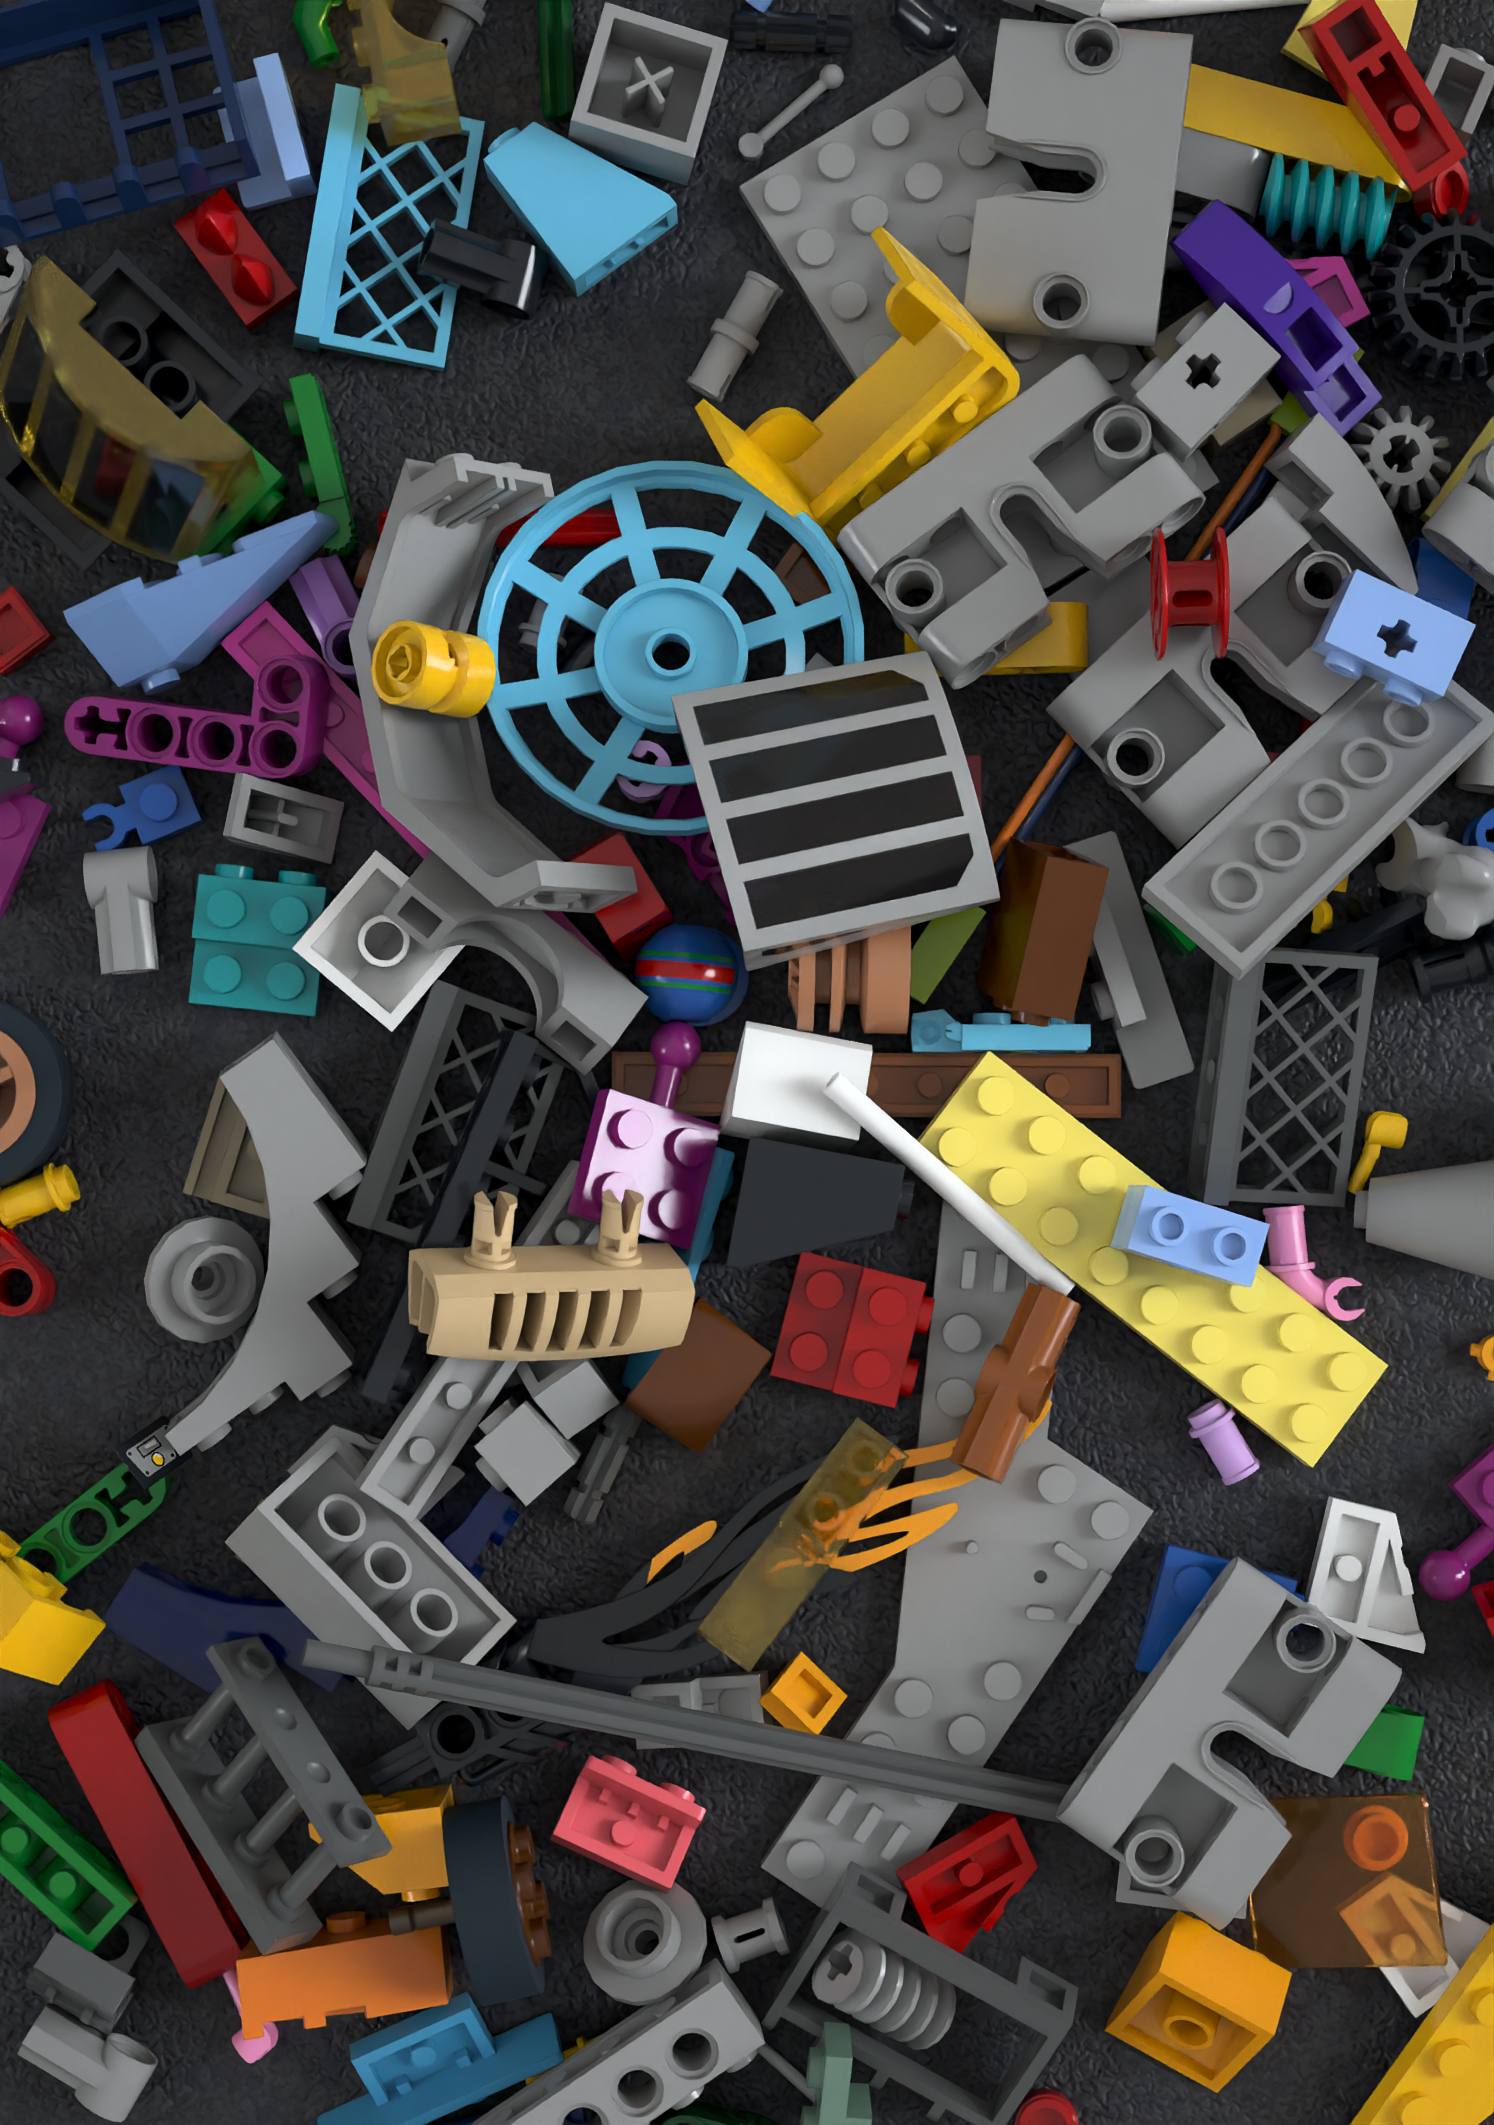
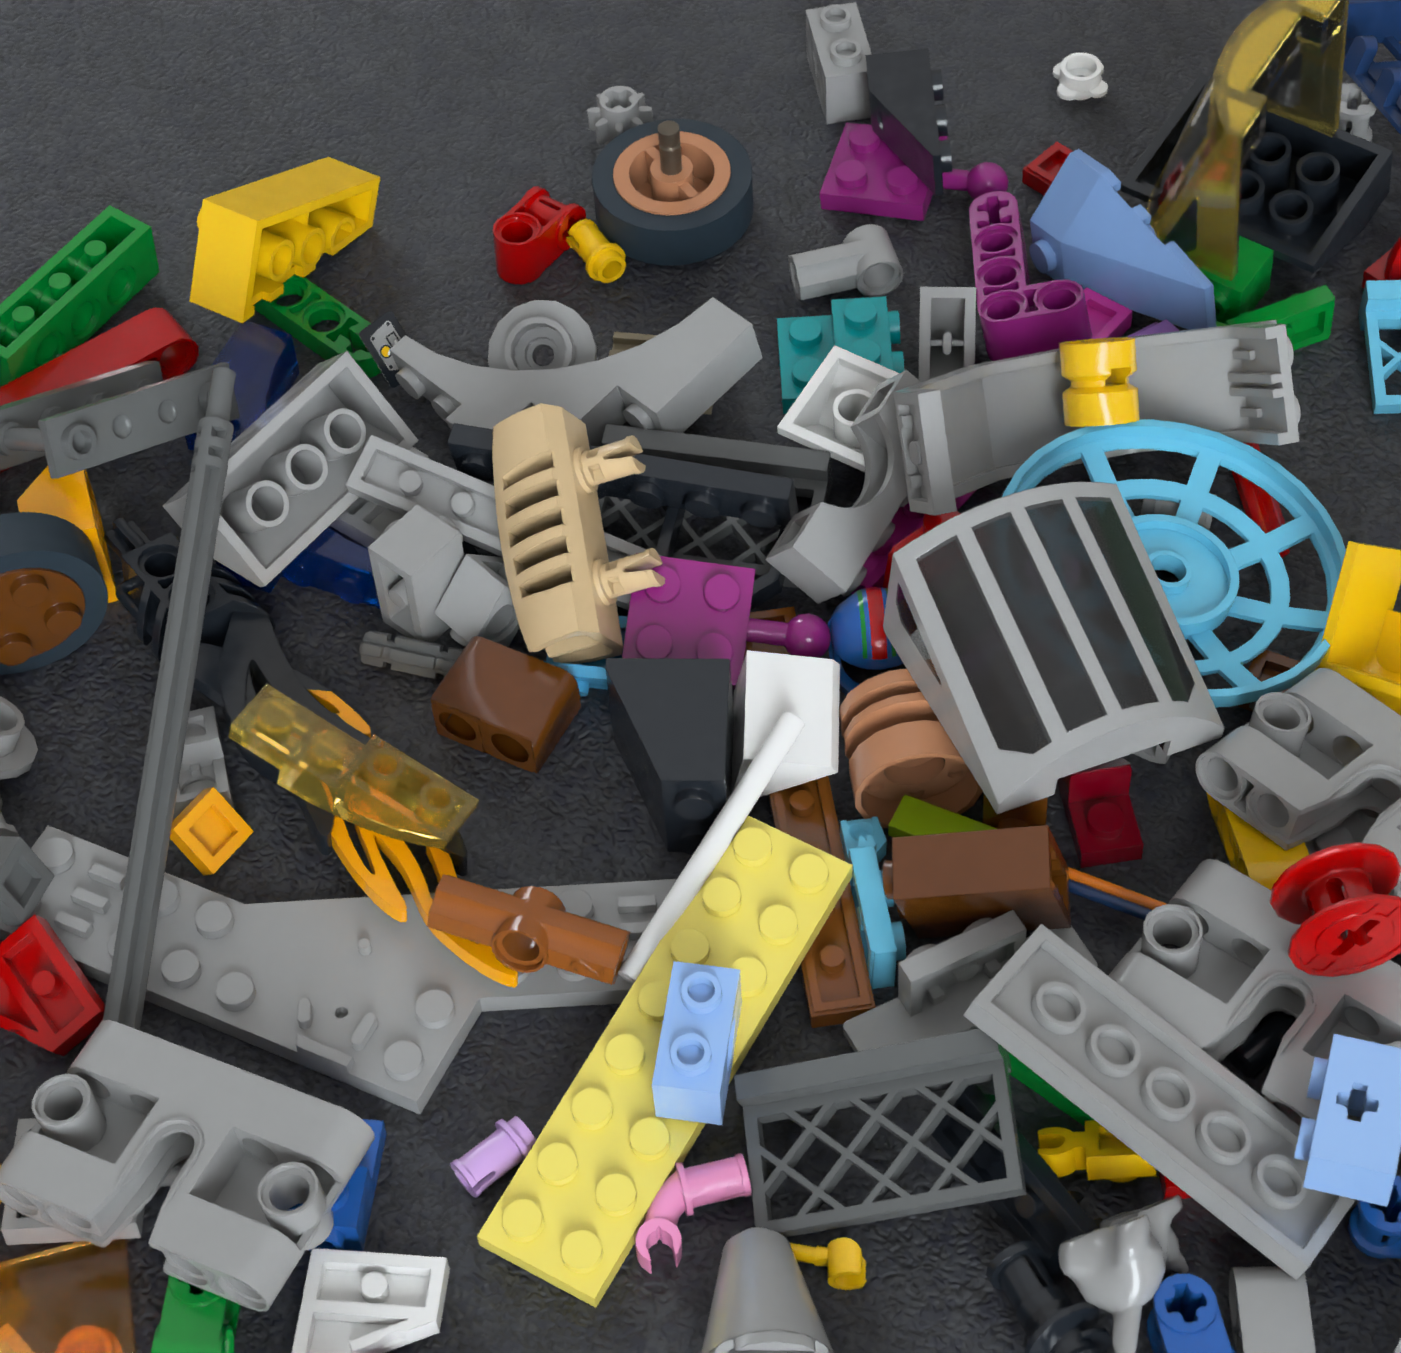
camera: 85 degrees right, 35 degrees down
(154, 806) = (927, 270): blue plate -> none
(628, 1822) = (82, 715): coral bracket -> none
(851, 1330) = (564, 826): red plate -> none

